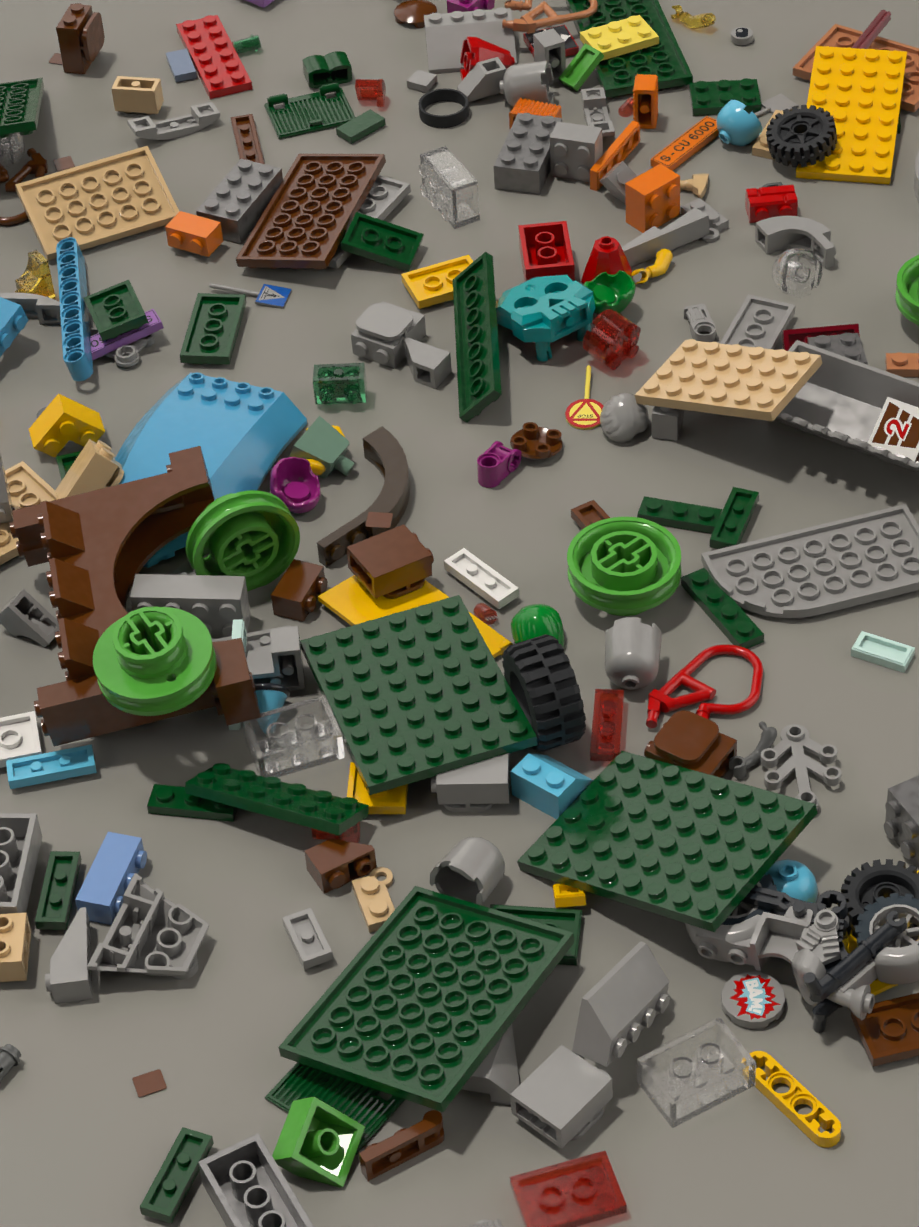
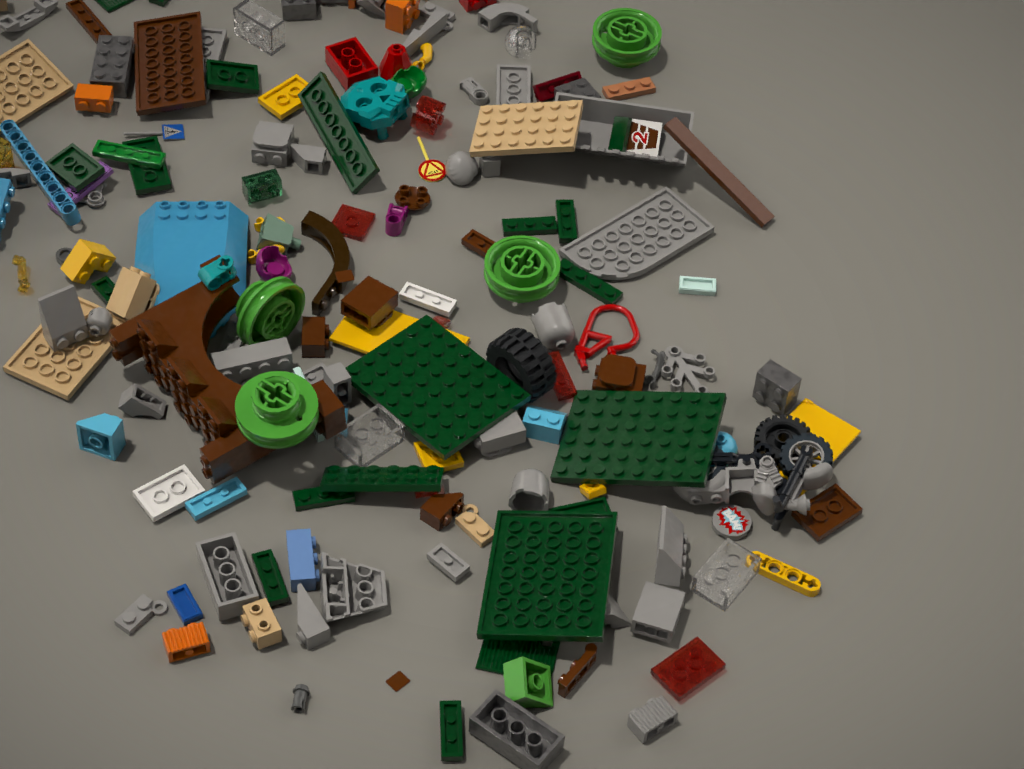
camera: 30 degrees left, 5 degrees up
(28, 496) = (99, 321): none -> light grey head
(178, 467) = (216, 273): none -> teal piece
(195, 309) = (128, 154): none -> green tile
(438, 457) = (353, 222): none -> clear red tile
(537, 621) = (483, 325): green piece -> none
(869, 416) = (620, 133): none -> dark green tile

